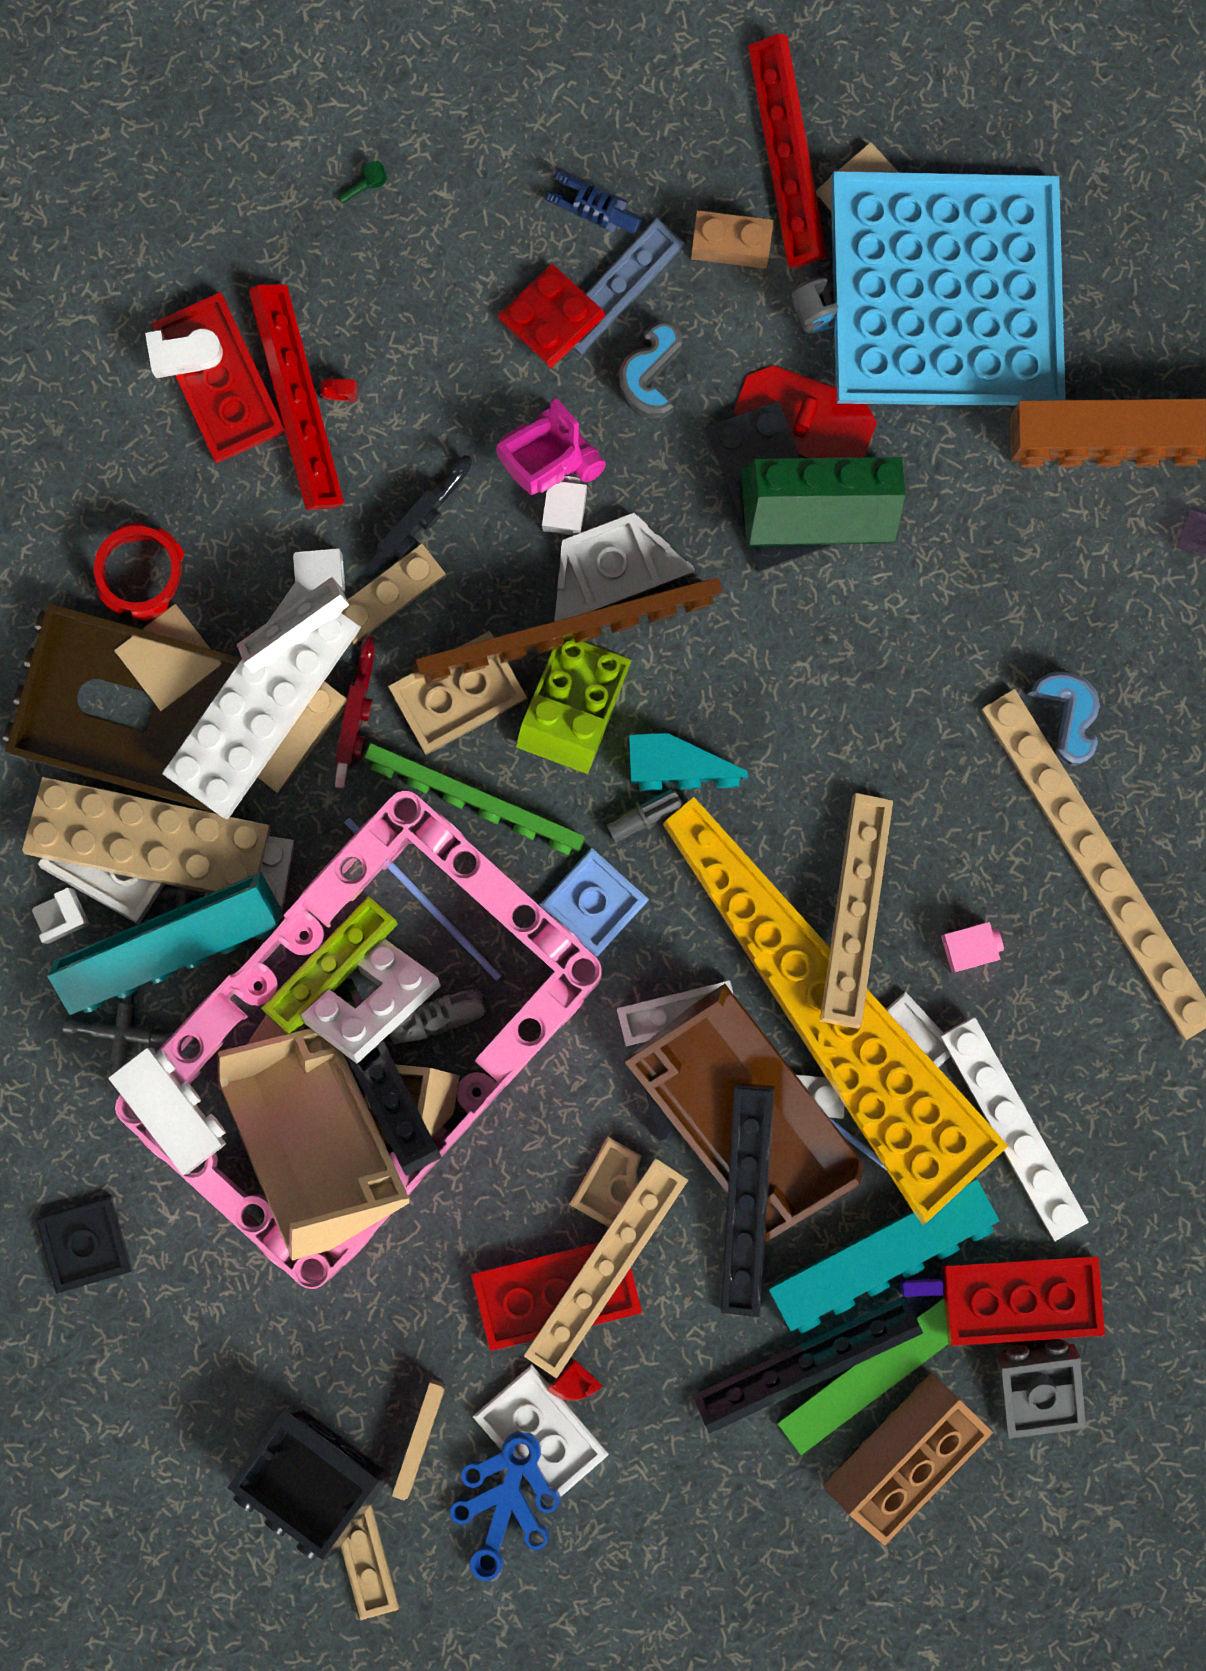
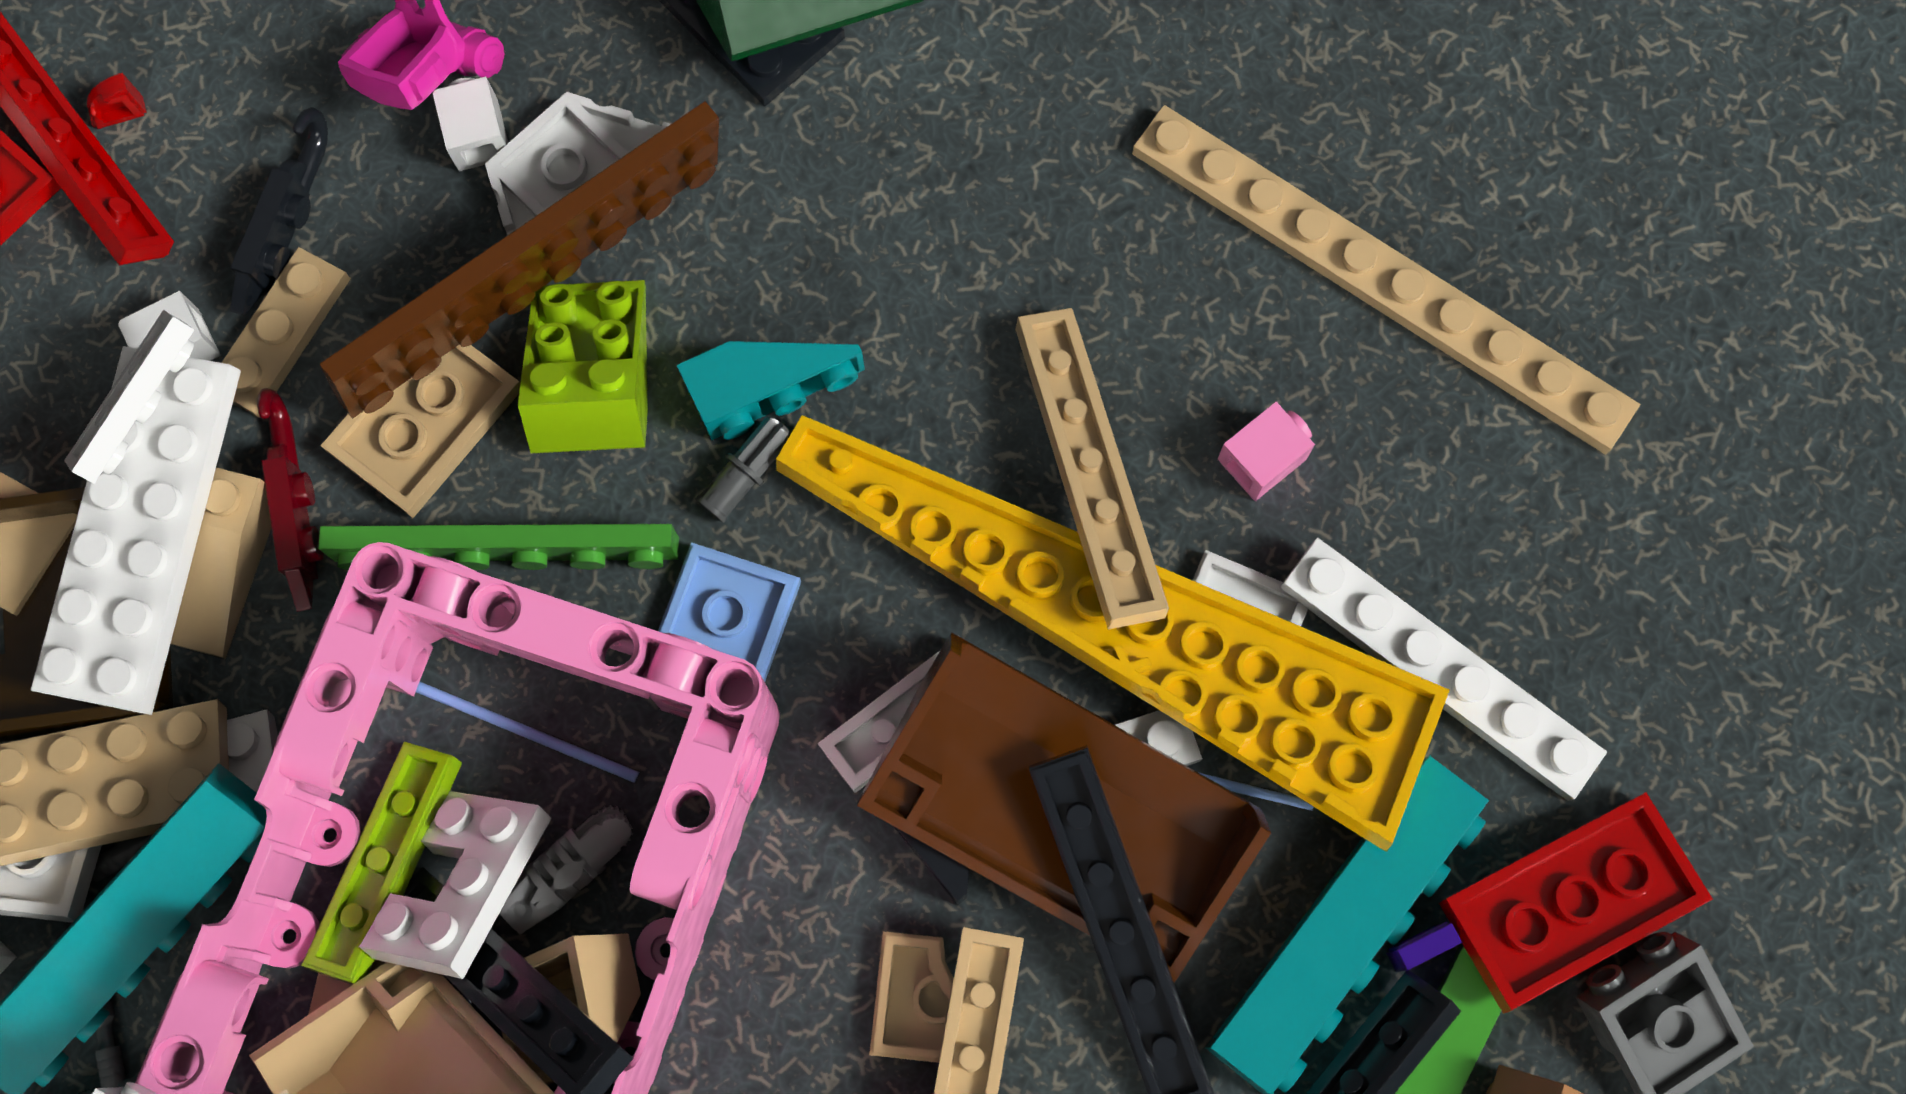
camera: 25 degrees left, 10 degrees down
(1079, 712) = (1260, 90): sand blue animal -> none

